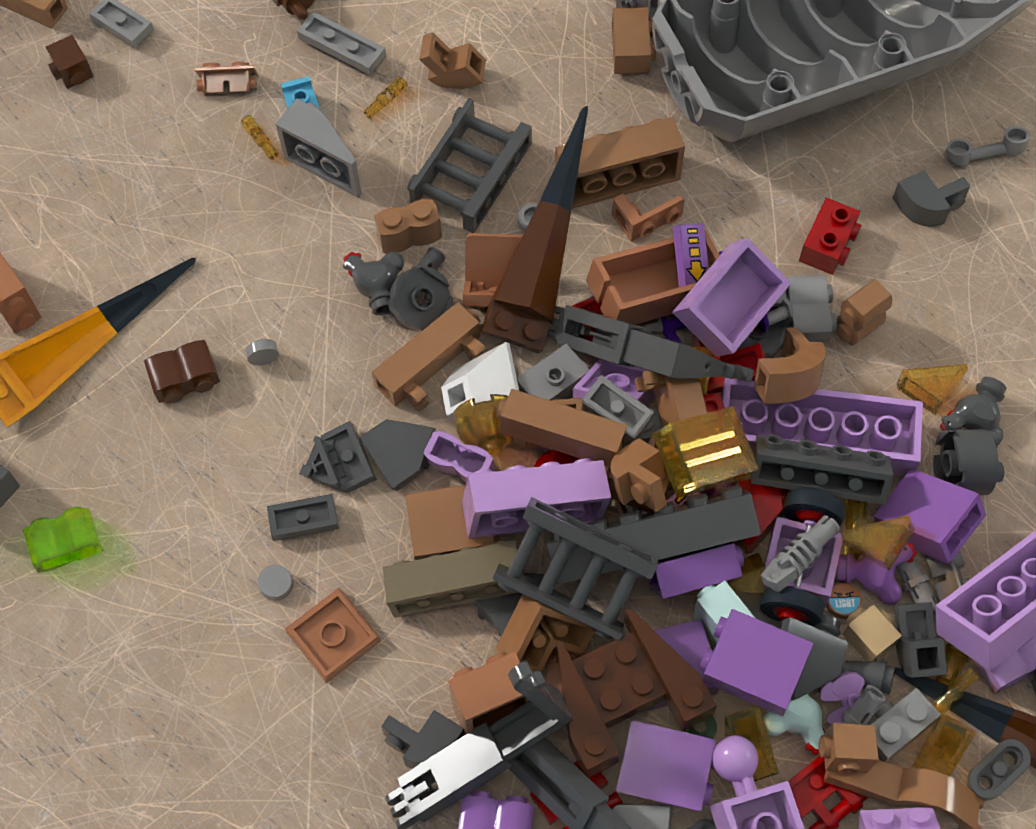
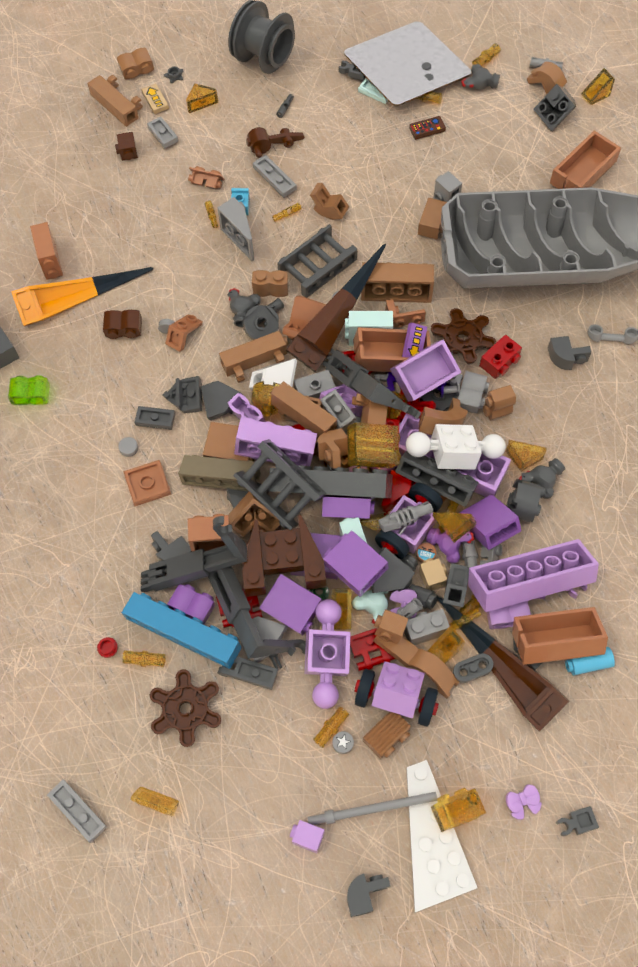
camera: 20 degrees right, 0 degrees up
(288, 353) = (178, 331): none -> nougat bracket
(598, 242) = (367, 319): none -> light aqua brick
(760, 204) = (469, 328): none -> reddish brown plate
(835, 410) = (455, 446): none -> white brick

